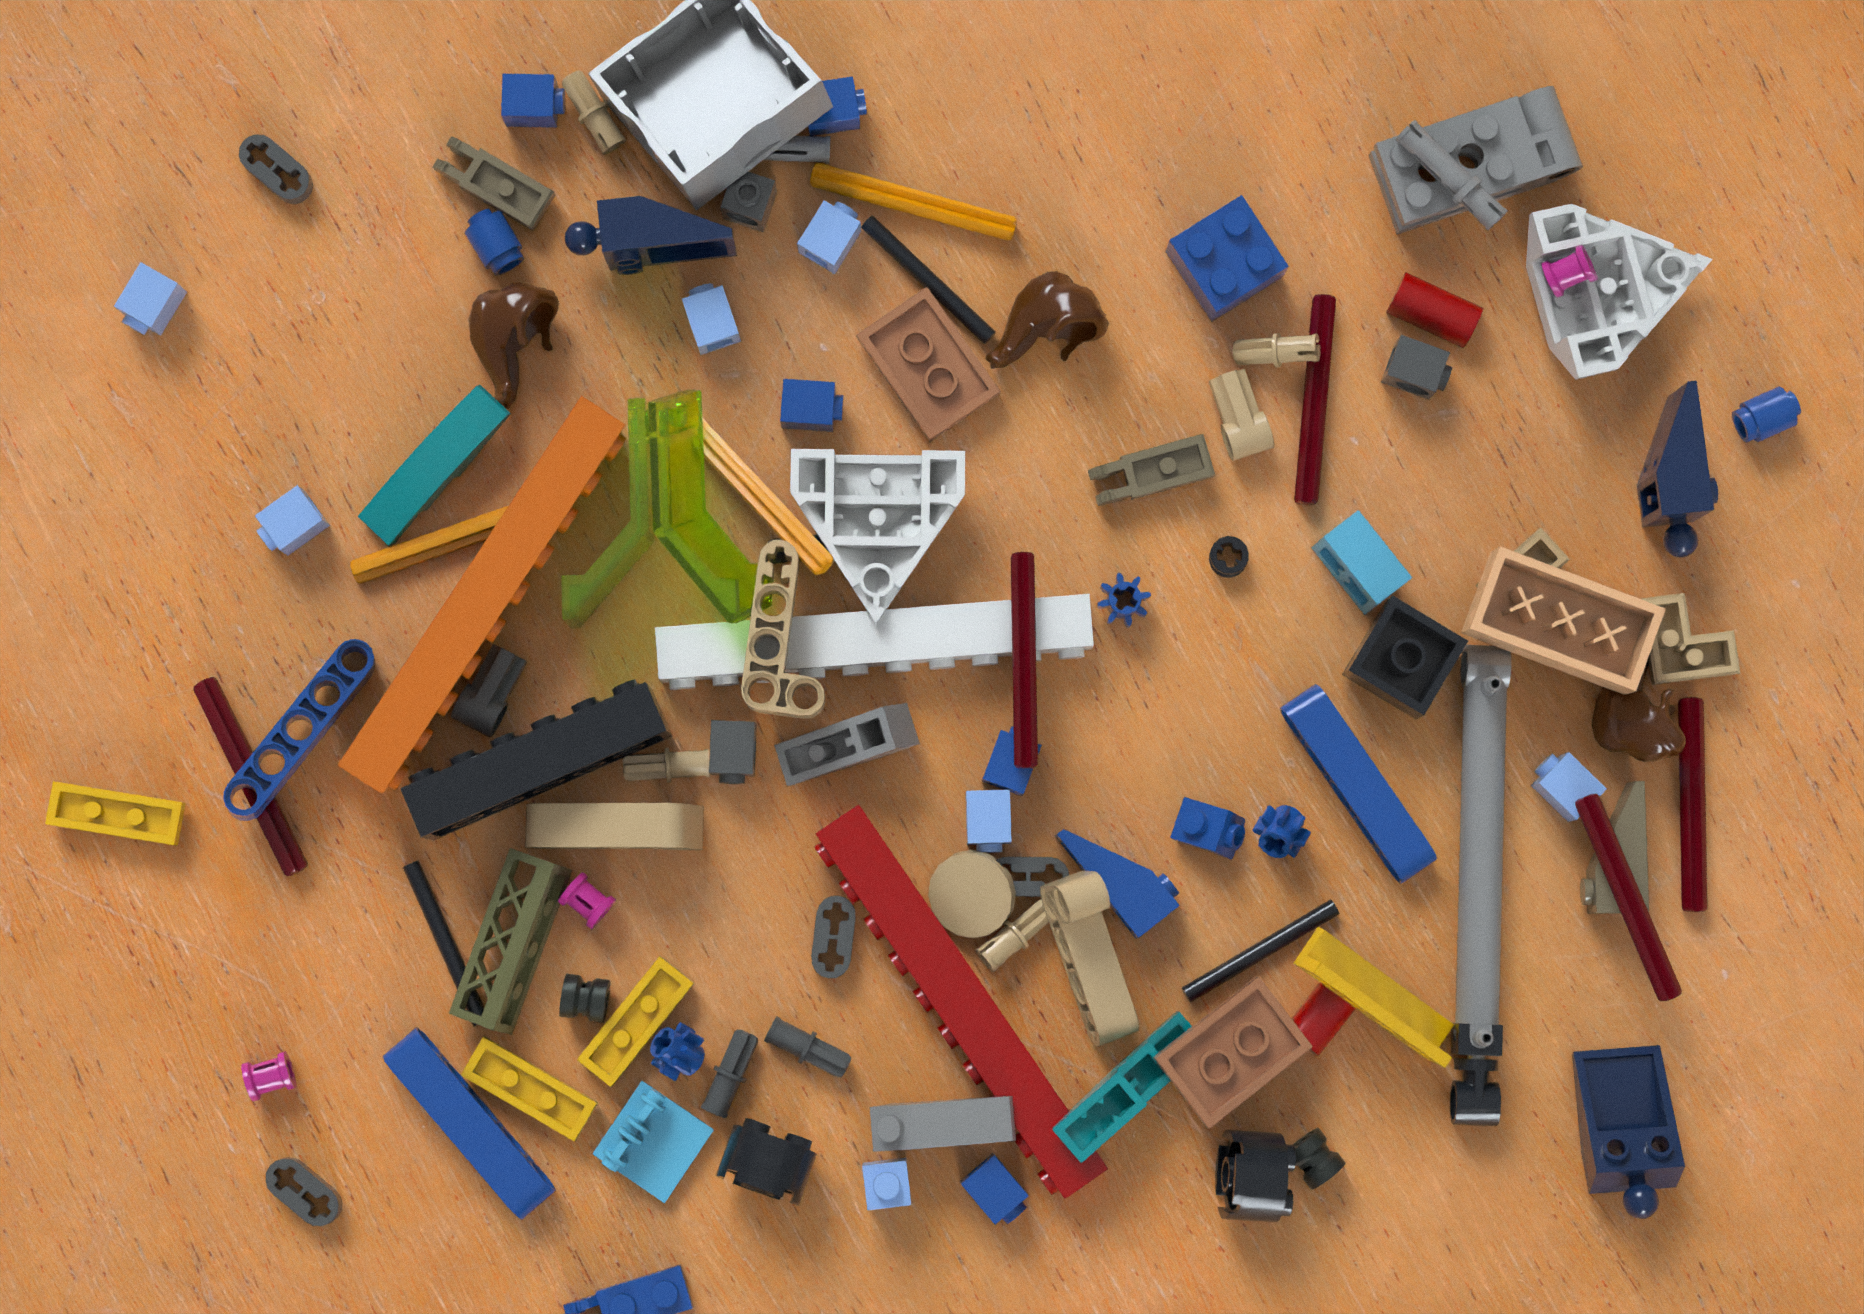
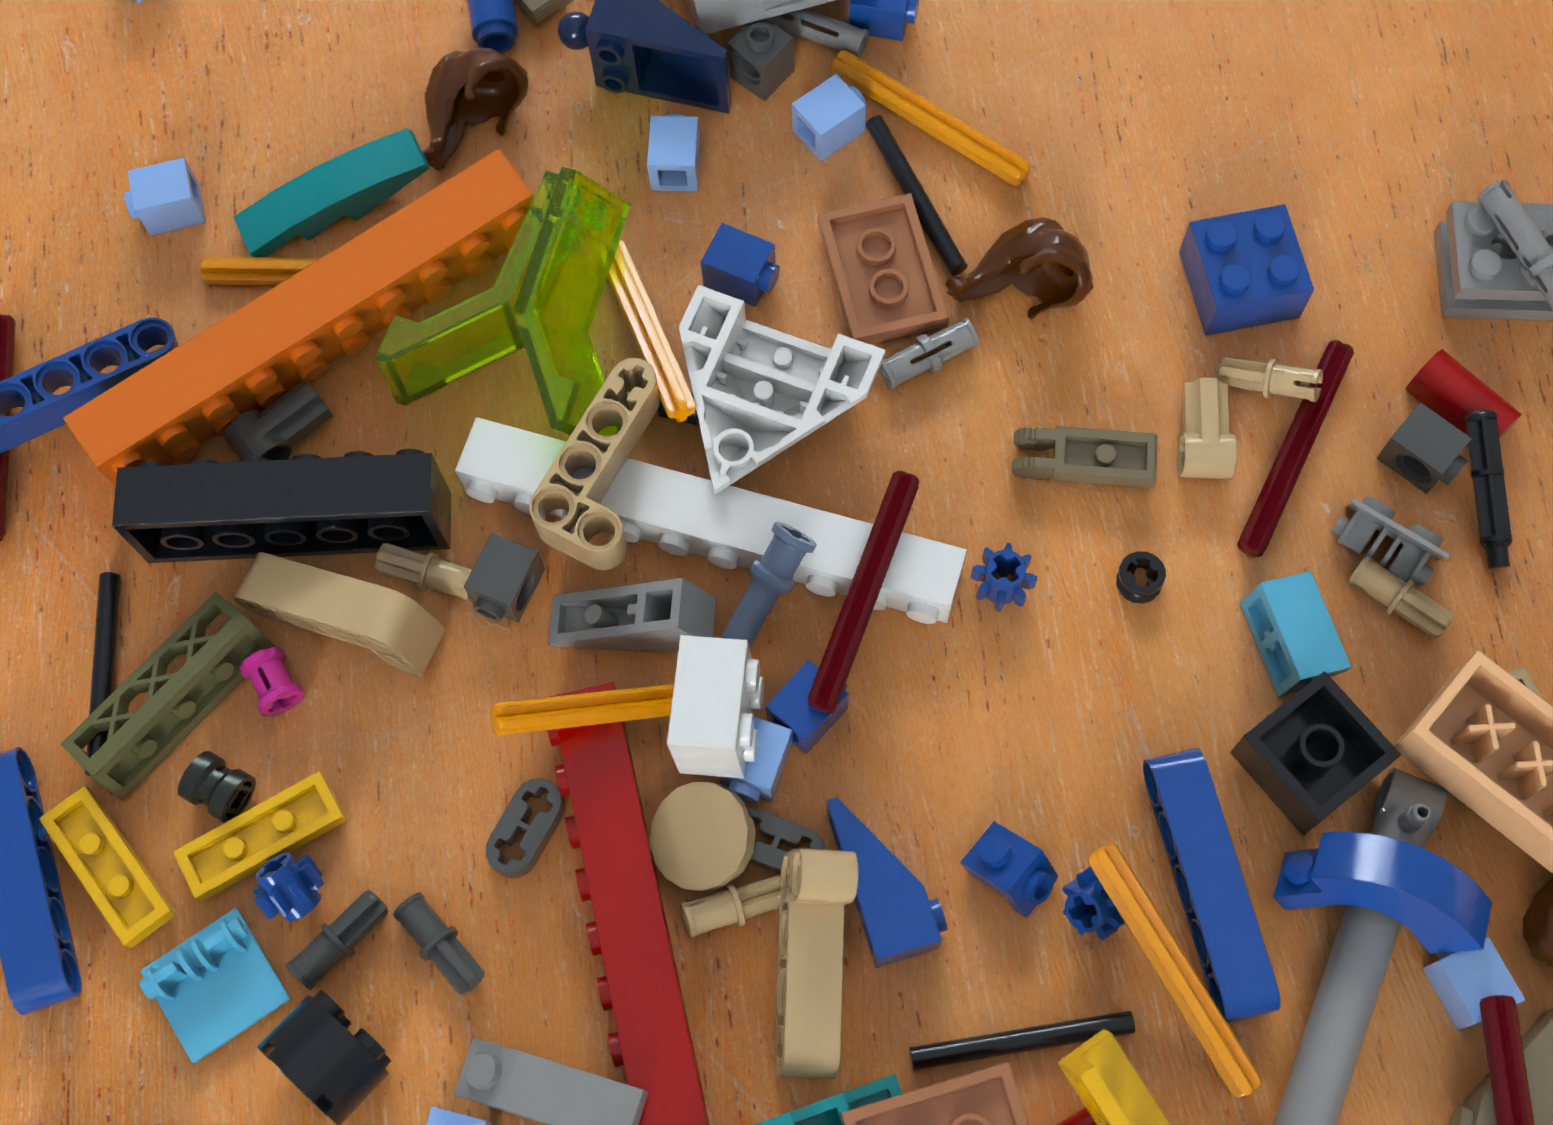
camera: 30 degrees right, 15 degrees down
(873, 823) = (581, 709): none -> light orange axle
(948, 677) = (771, 577): none -> sand blue pin
(951, 802) = (713, 707): none -> white brick
(994, 426) = (957, 338): none -> light grey pin
(1352, 861) = (1174, 970): none -> light orange axle
(1431, 455) = (1416, 540): none -> light grey hinge
(1433, 501) = (1401, 597): none -> tan axle
(1474, 382) = (1489, 486): none -> black piece
(1487, 740) = (1390, 877): none -> blue arch

